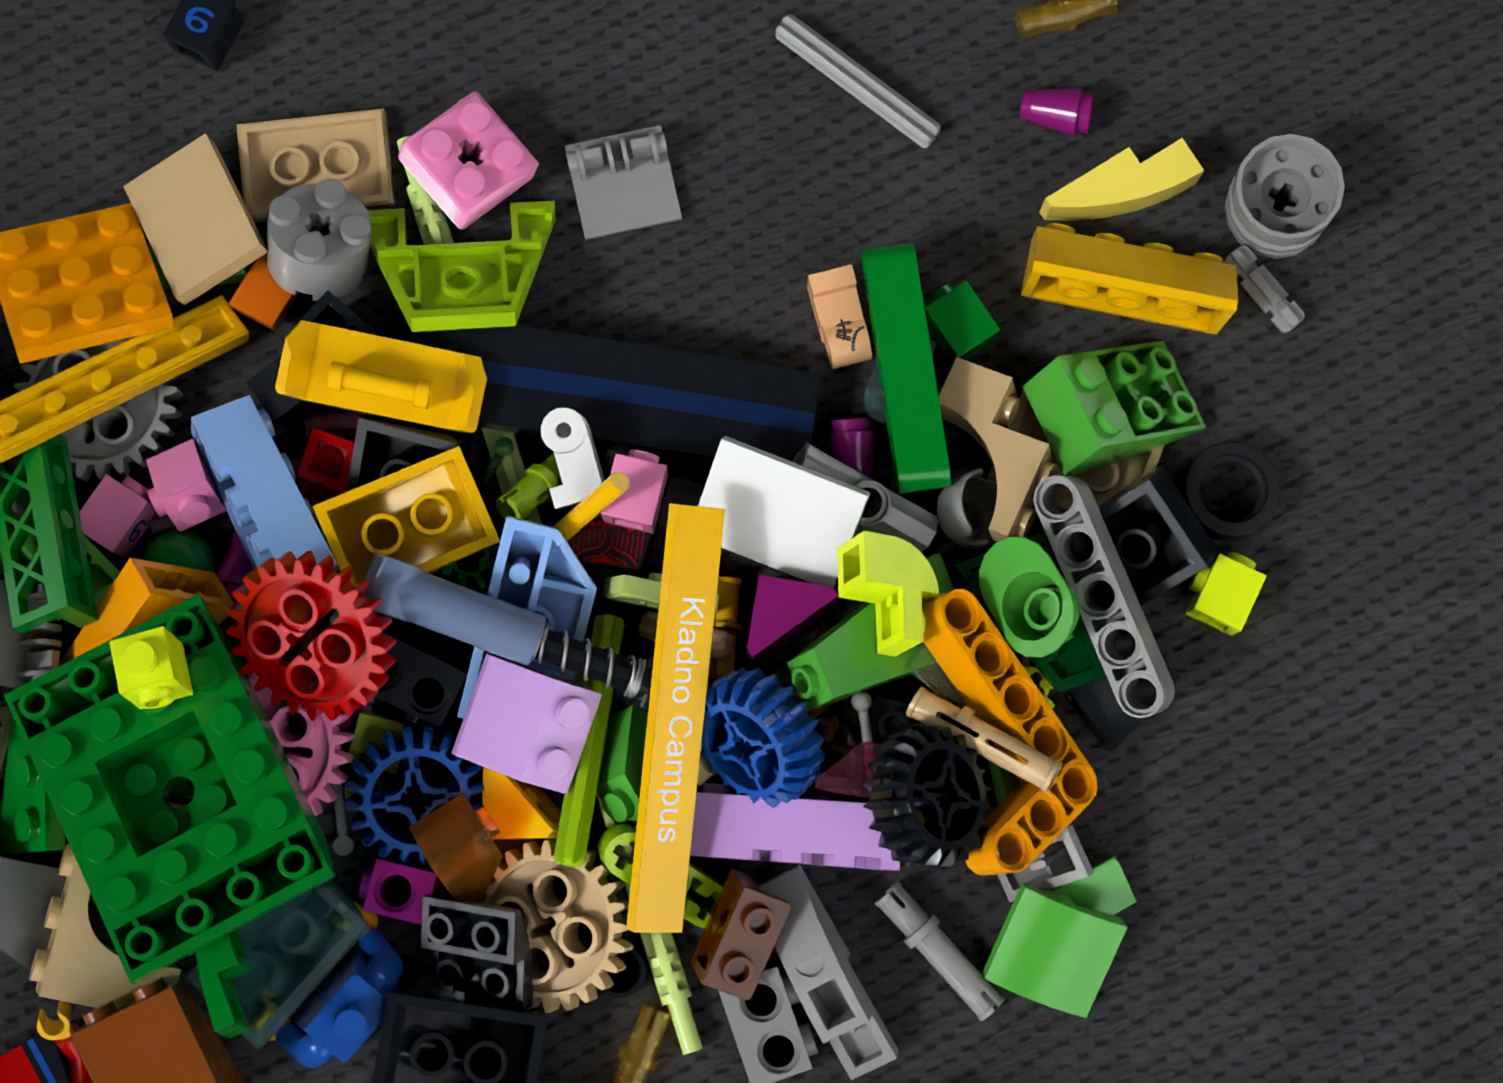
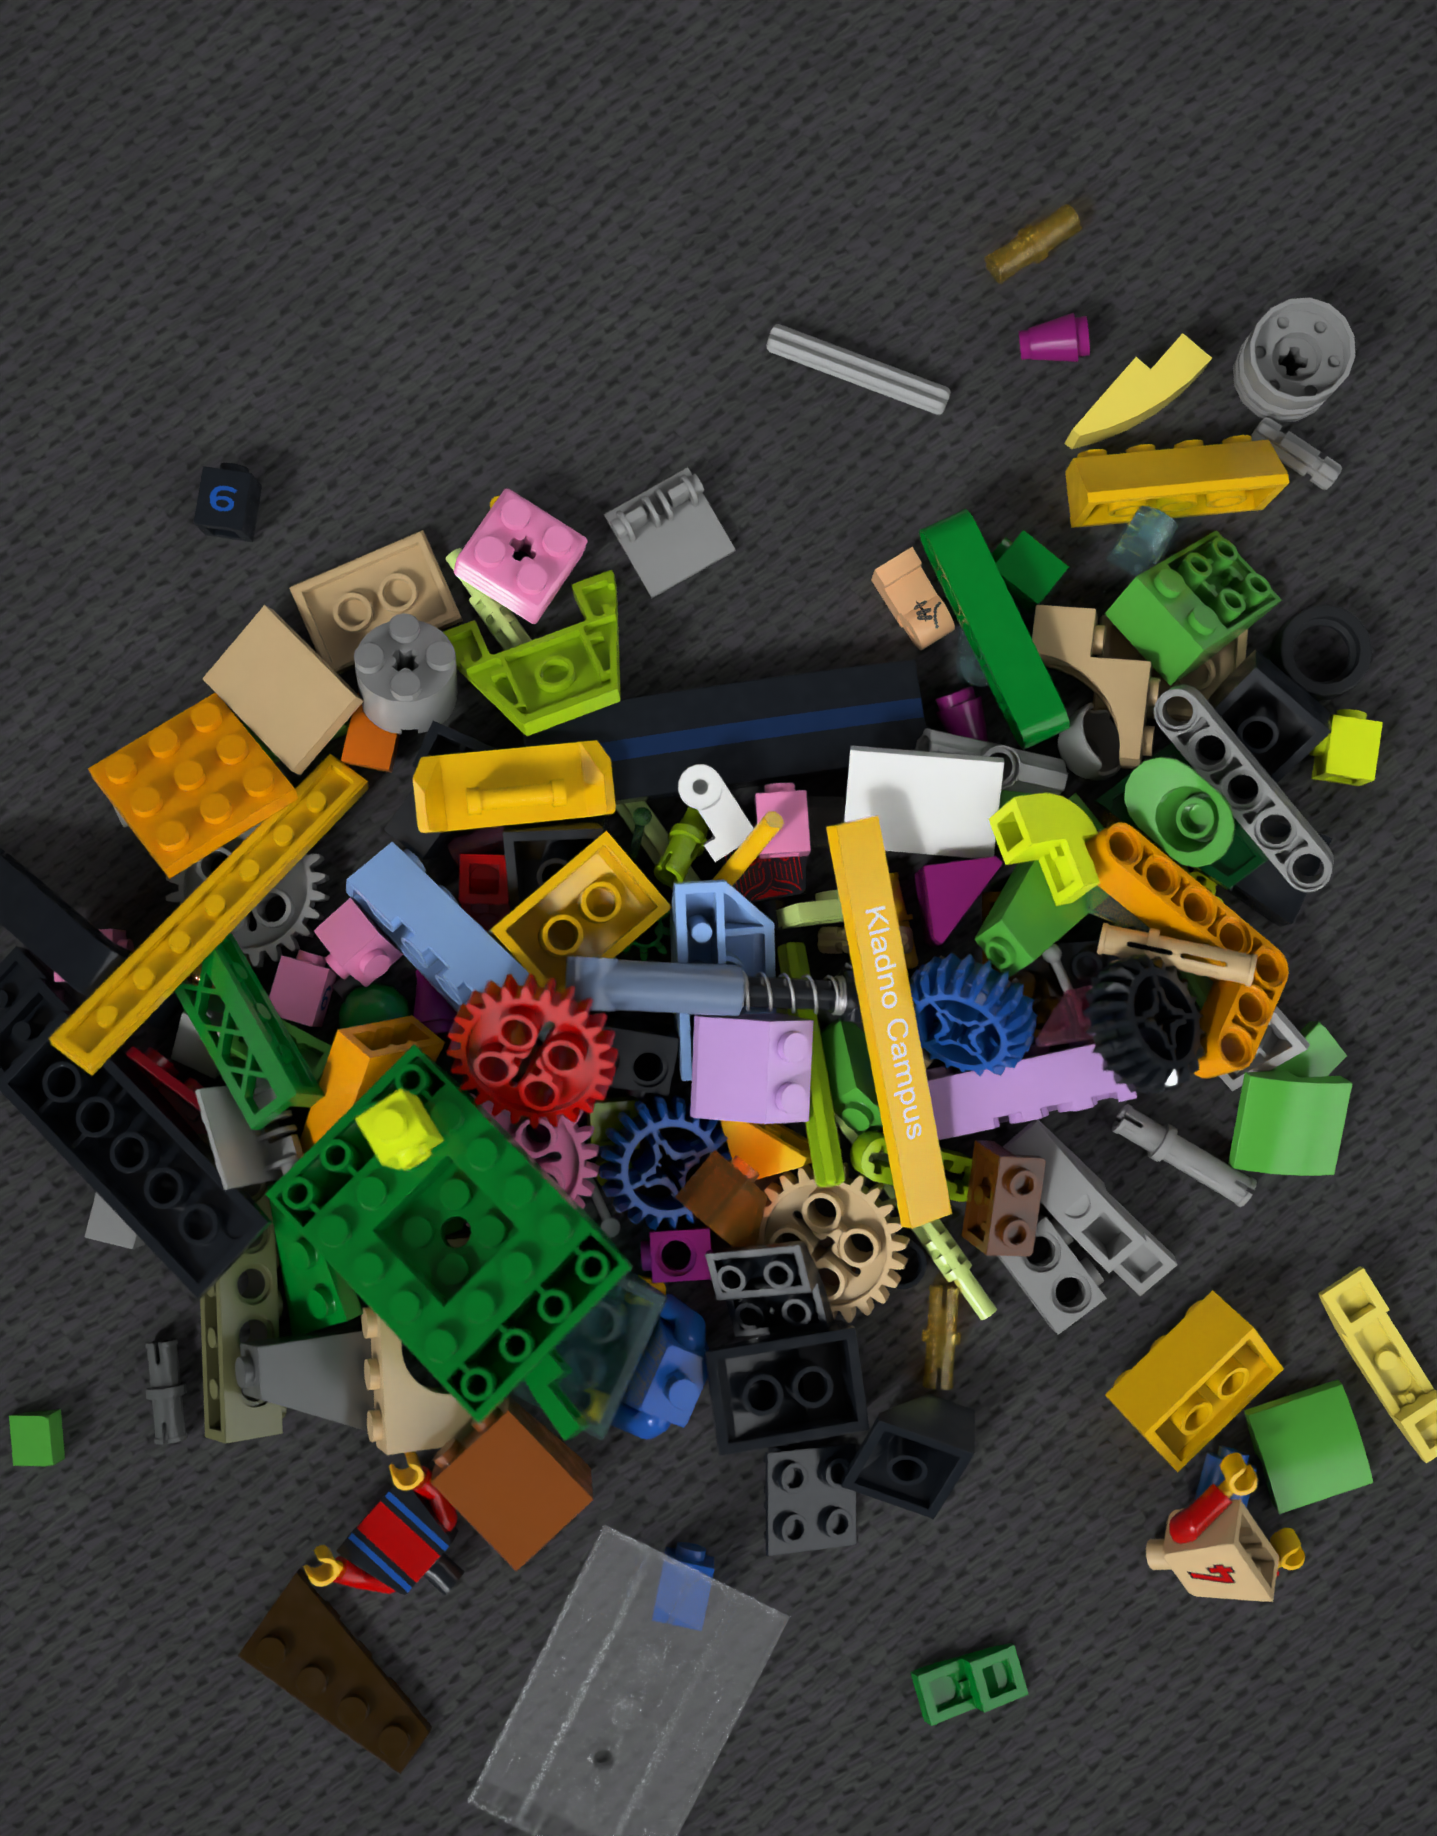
camera: 15 degrees left, 5 degrees up
(1083, 326) = (1143, 541): none -> clear light blue leg

